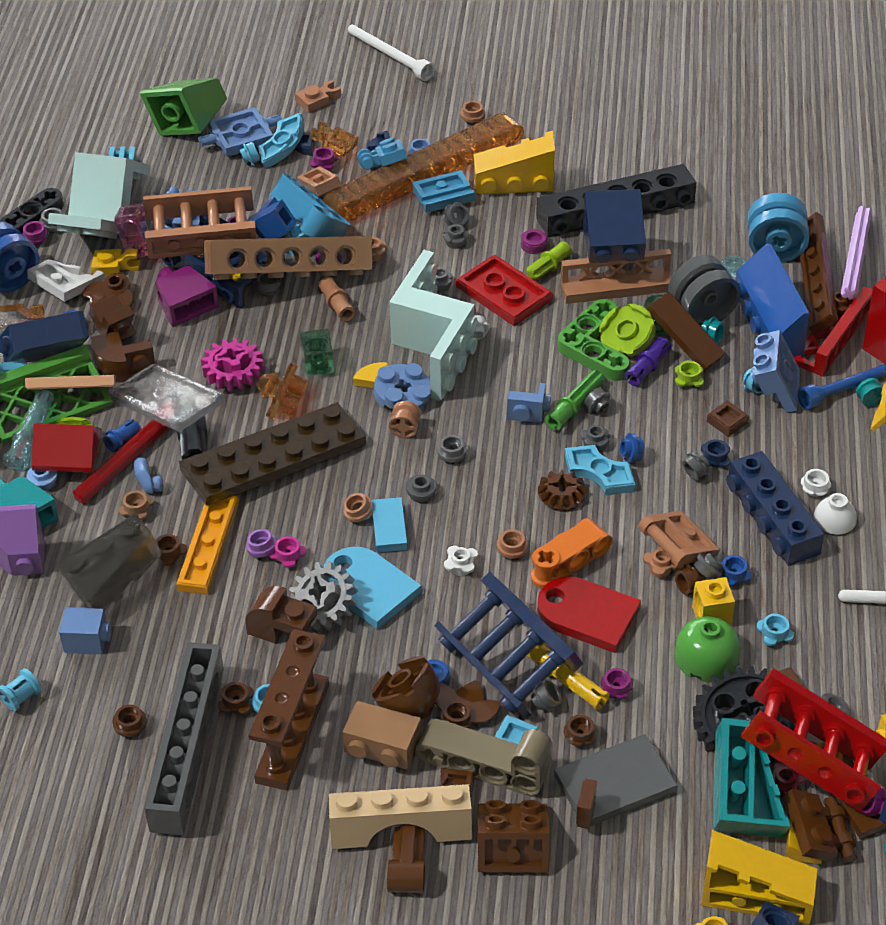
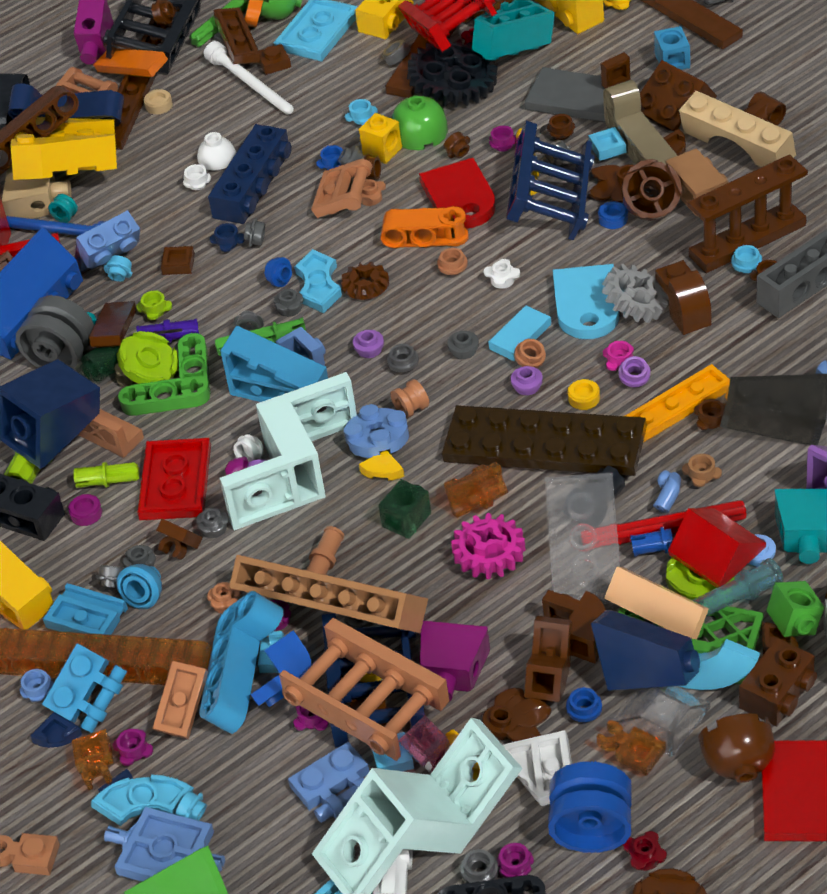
camera: 130 degrees left, 0 degrees up
(286, 510) = (583, 394): none -> yellow tile
(338, 490) = (526, 380): none -> medium lavender plate
(429, 219) = (139, 585): none -> dark azure brick
(446, 253) = (177, 536): none -> reddish brown tile
(493, 445) = (368, 343): none -> medium lavender plate
(520, 367) = (264, 369): none -> dark azure wedge
(573, 876) = (672, 47): none -> dark azure brick
(645, 649) = (457, 145): none -> reddish brown plate

